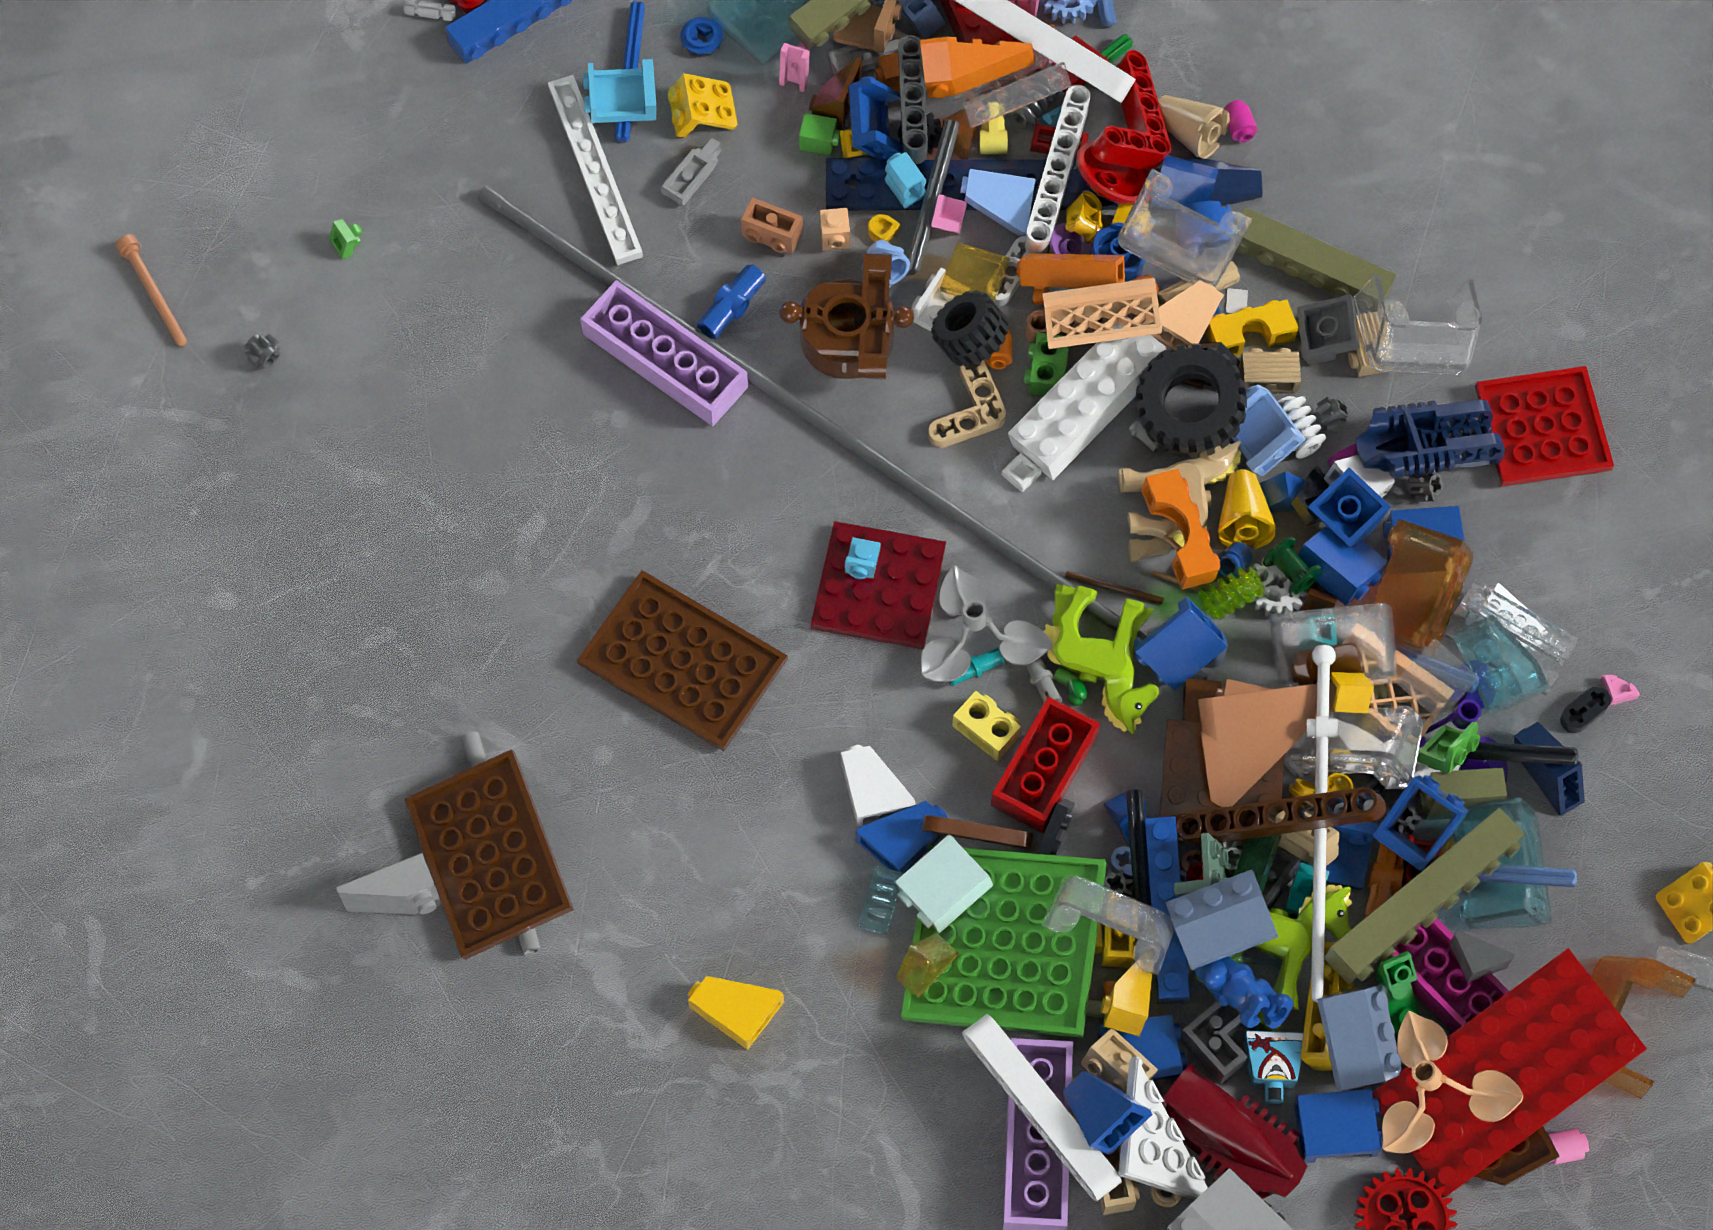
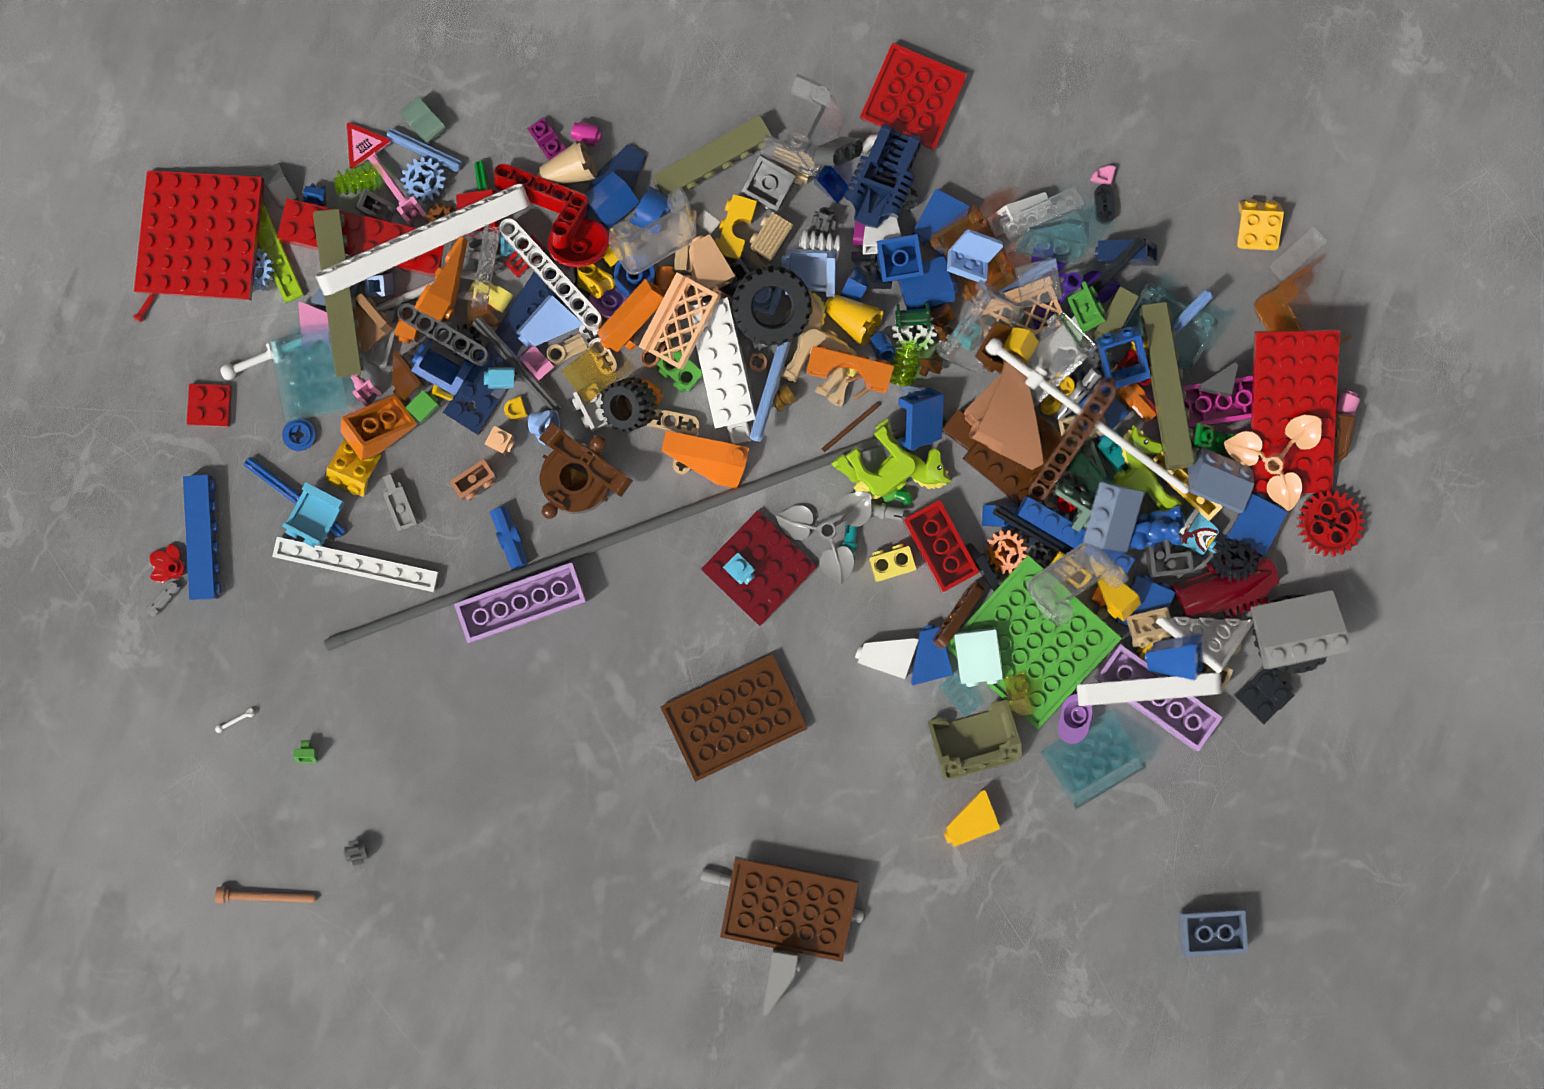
camera: 55 degrees left, 20 degrees up
(319, 142) = (249, 713): none -> white hinge
(763, 99) = (376, 426): none -> orange slope
(832, 951) = (976, 741): none -> olive windscreen
(907, 1109) = (1096, 762): none -> clear light blue slope
(942, 1052) = (1074, 720): none -> medium lavender piece
(969, 451) = (713, 459): none -> orange wedge
(986, 236) = (568, 348): none -> tan piece
(1095, 491) = (784, 397): none -> pearl gold wheel
(1095, 840) = (1006, 543): none -> orange gear
(1098, 465) = (769, 392): none -> light blue axle
(1116, 452) = (761, 357): none -> nougat bush
(1195, 401) = (766, 298): none -> light blue piece
(1205, 84) = (546, 138): none -> magenta slope
(1254, 628) = (935, 361): none -> reddish brown animal
(1273, 1117) = (1235, 561): none -> black gear
(1378, 391) = (831, 183): none -> clear blue slope
(1414, 583) = (972, 254): none -> light blue bracket
(1419, 373) = (839, 151): none -> dark grey beam

